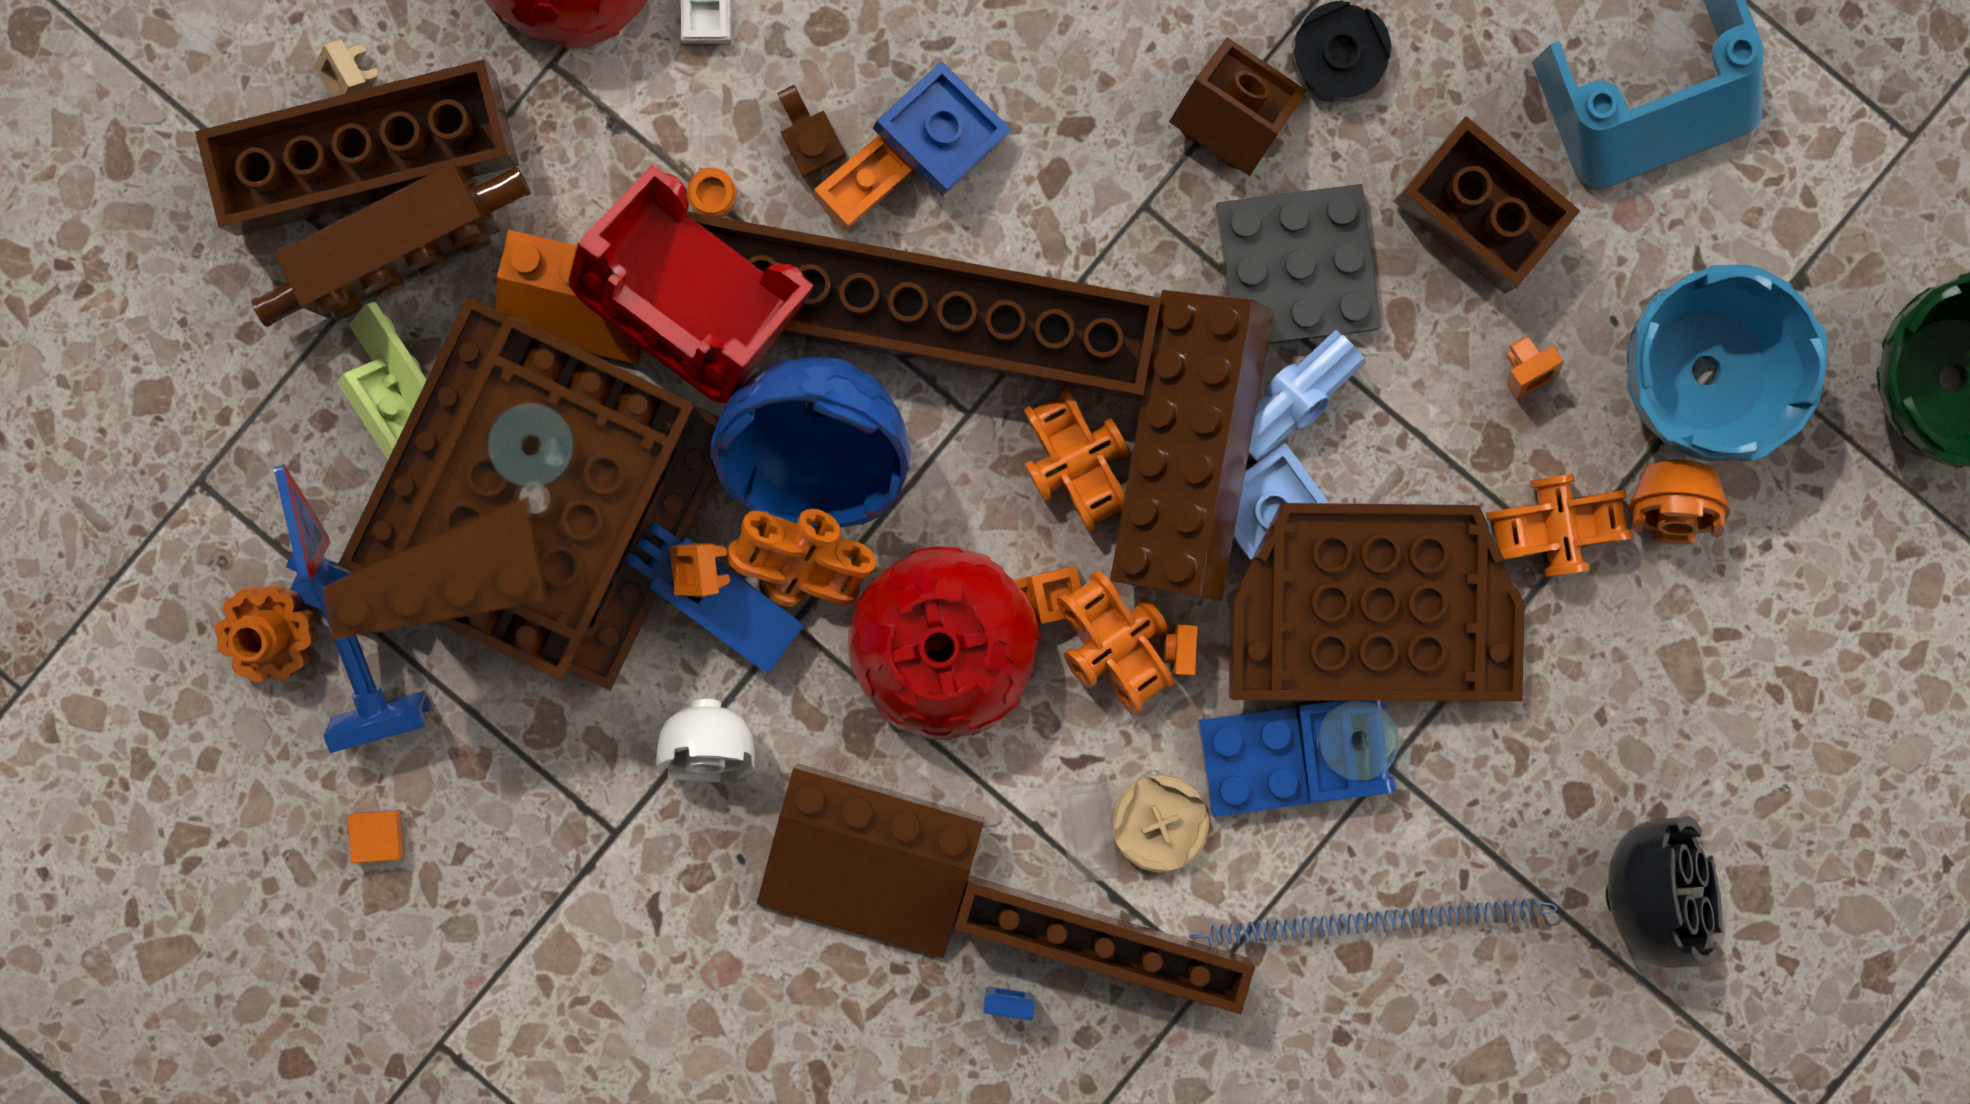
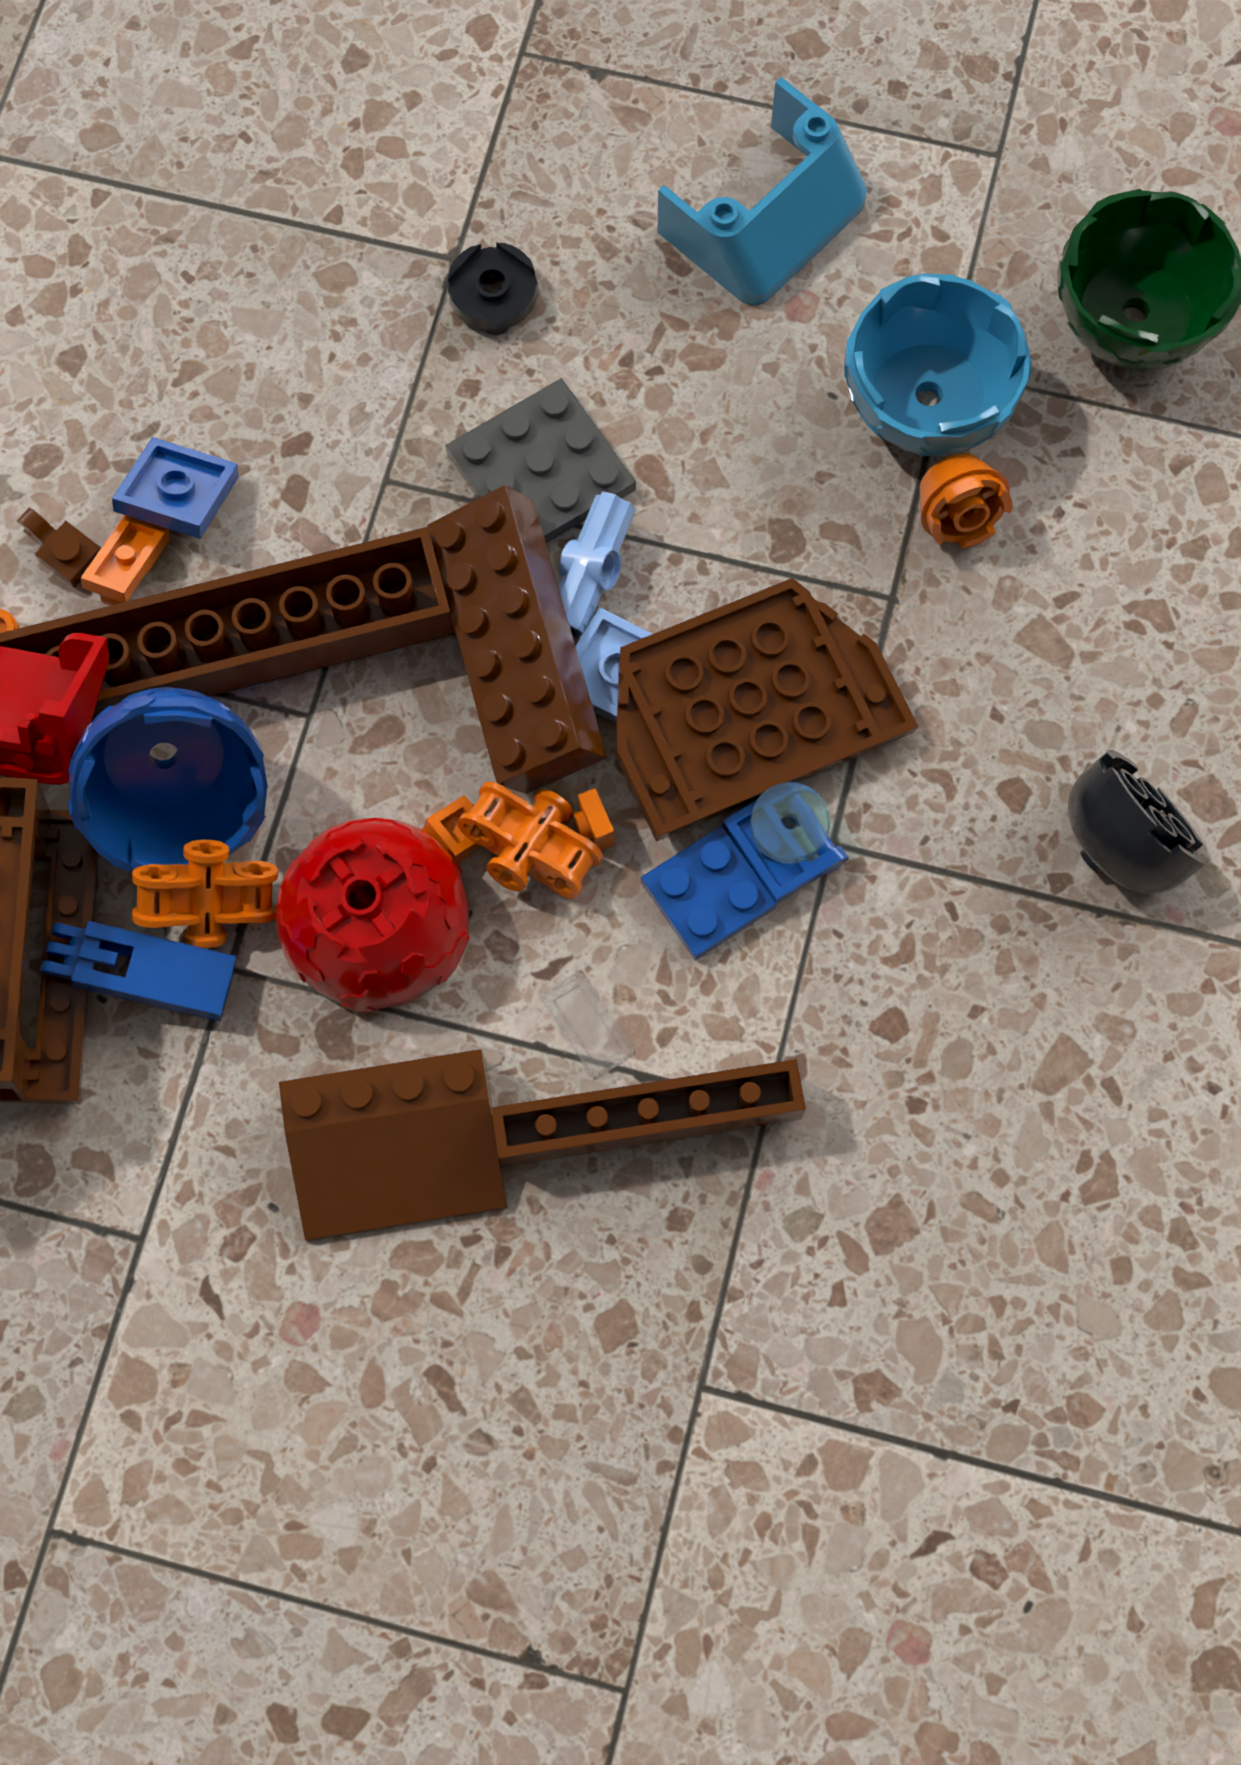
camera: 20 degrees left, 15 degrees down
(695, 569) = (106, 938): orange tile -> none
(705, 742) = (188, 1108): white cylinder -> none
(1008, 1003) = (587, 1215): blue tile -> none
(1068, 444) = (421, 704): orange axle -> none
(1160, 823) = (650, 987): tan tile -> none
(1237, 106) = (423, 365): reddish brown slope -> none
(1356, 922) = (890, 981): medium blue piece -> none
(1486, 205) = (672, 343): reddish brown brick -> none
(1531, 367) = (781, 454): orange tile -> none
(1560, 525) = (873, 568): orange axle -> none

